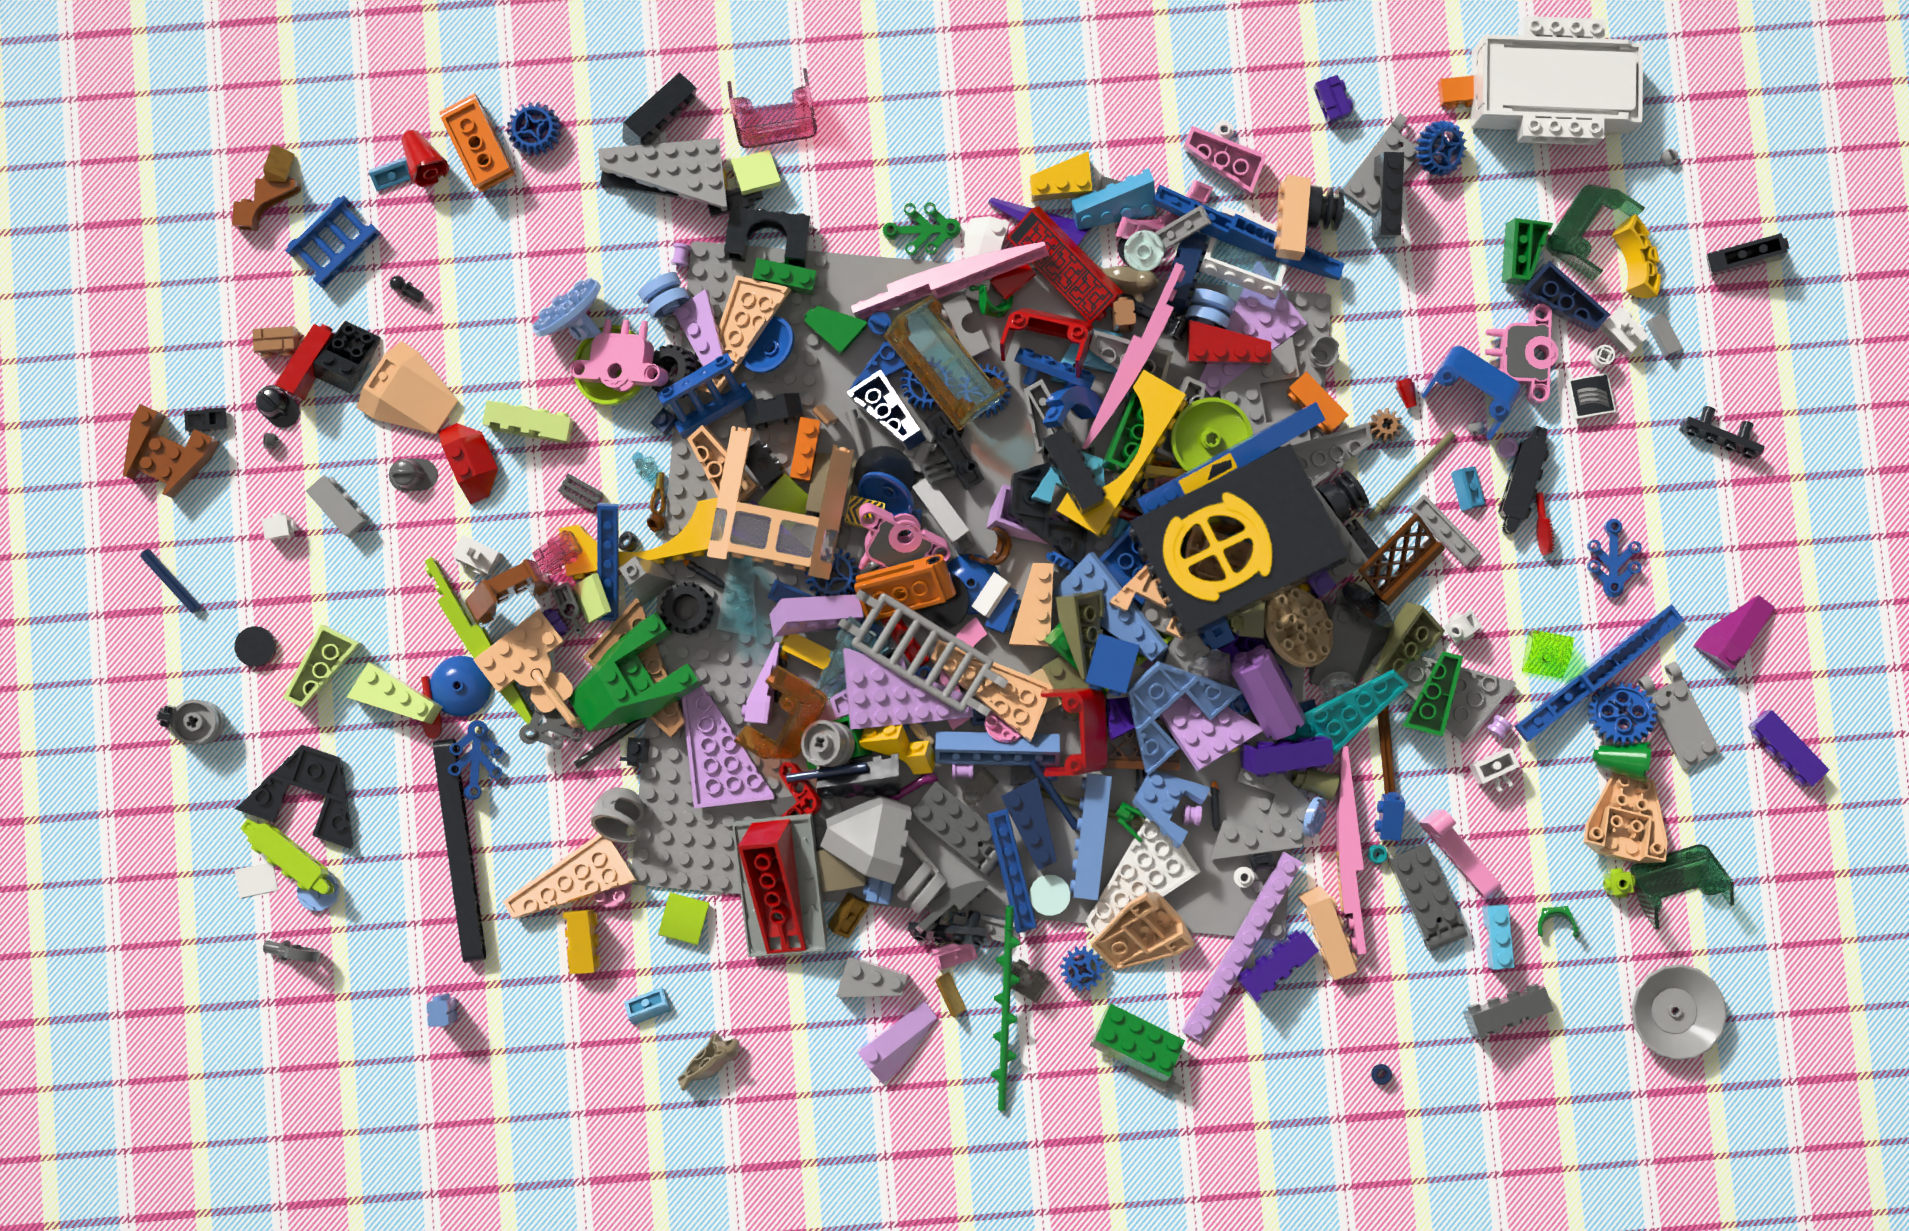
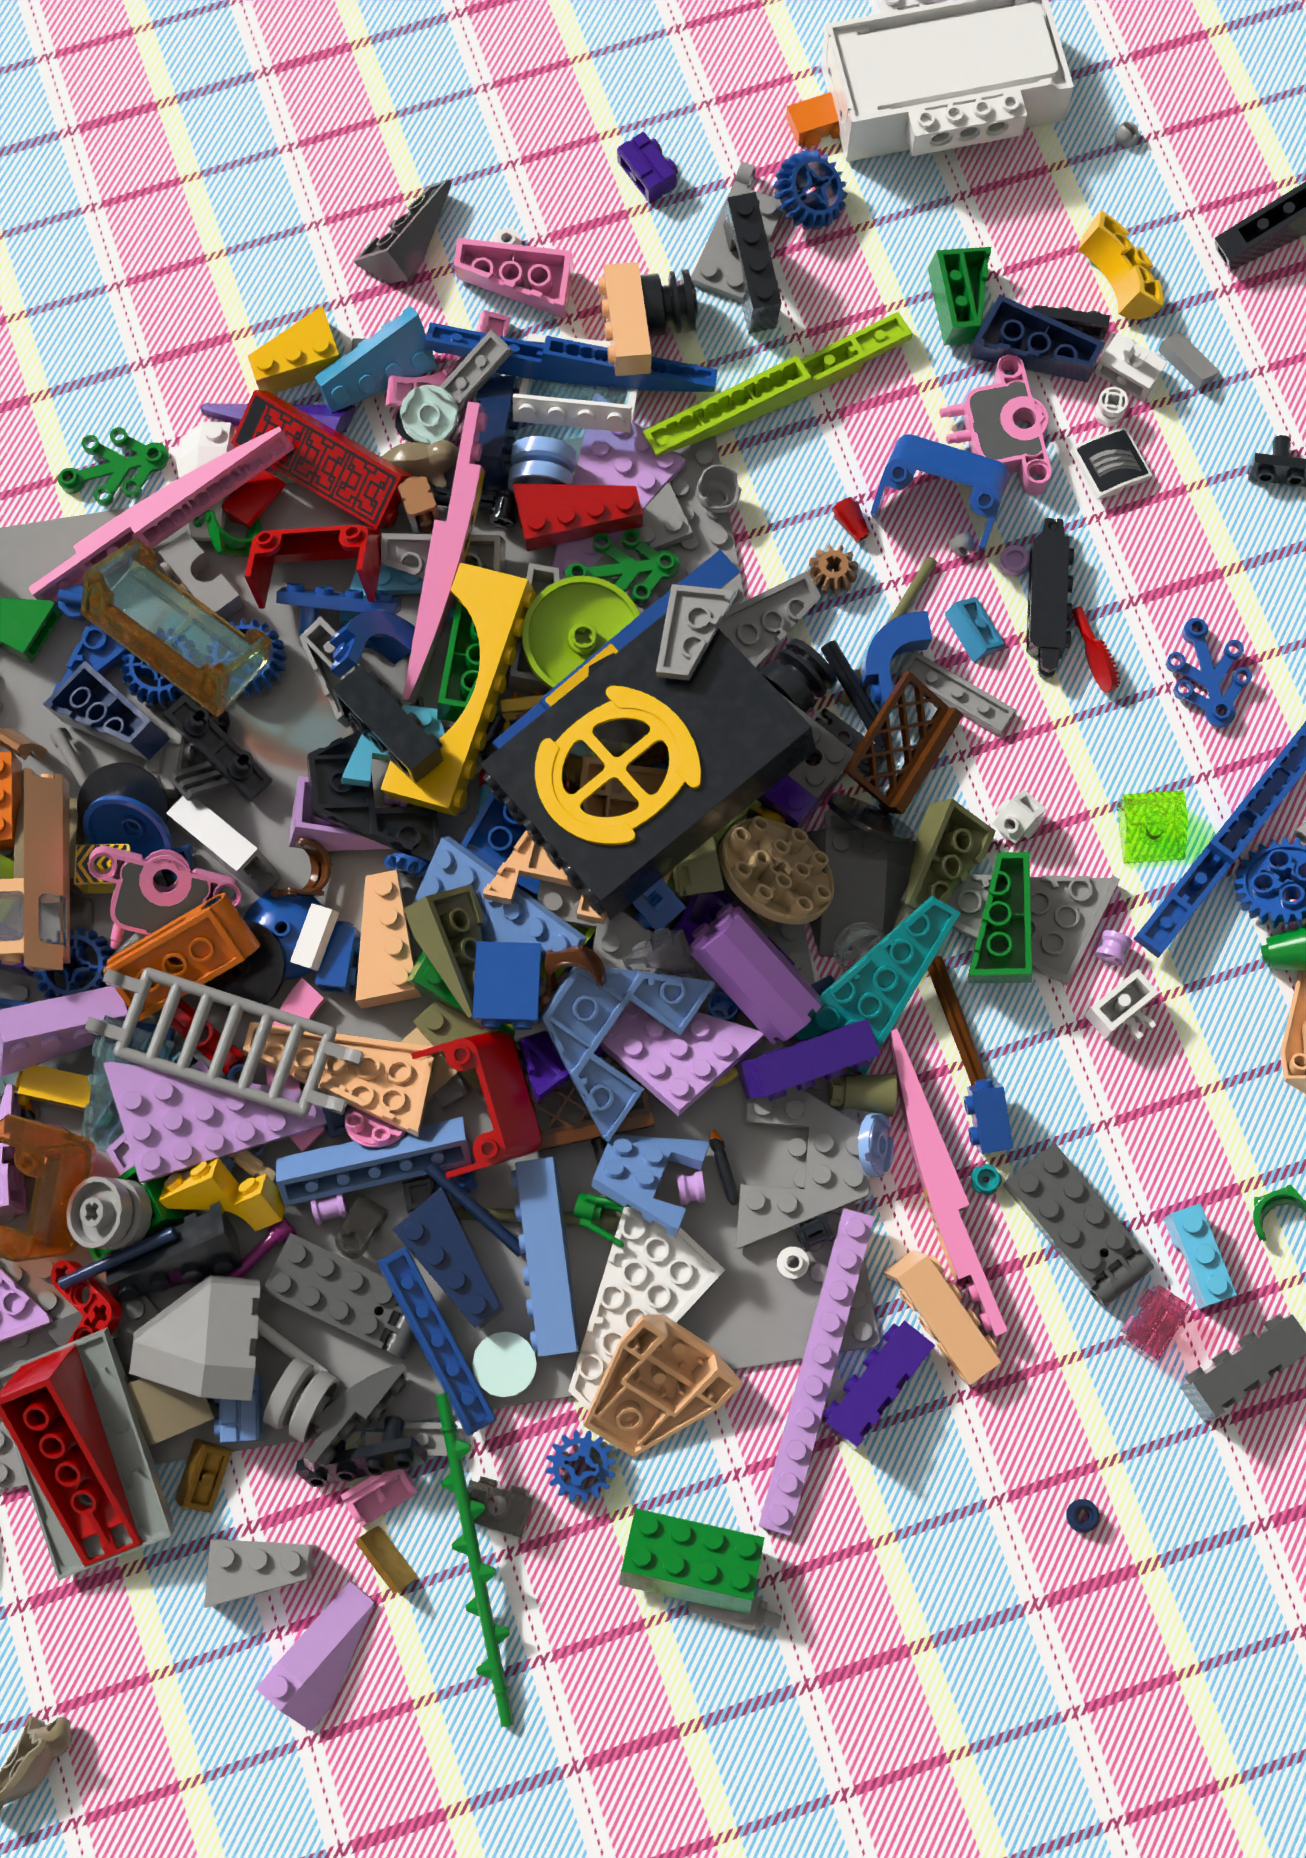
camera: 10 degrees left, 10 degrees down
(1151, 116) = (405, 246): none -> dark grey wedge
(1158, 659) = (571, 956): none -> reddish brown helmet
(1250, 391) = (628, 567): none -> green plant
(1287, 467) = (689, 627): none -> light grey wing
(1307, 391) = (754, 568): orange brick -> none
(1377, 511) = (852, 687): none -> black axle
(1383, 286) = (778, 386): none -> lime slope
(1397, 500) = (898, 636): none -> blue arch
(1439, 828) = (1105, 1145): bright pink beam -> none
(1458, 969) = (1154, 1323): none -> clear pink brick
(1567, 239) = (1020, 269): clear green windscreen -> none
(1602, 292) = (1091, 323): none -> black hinge

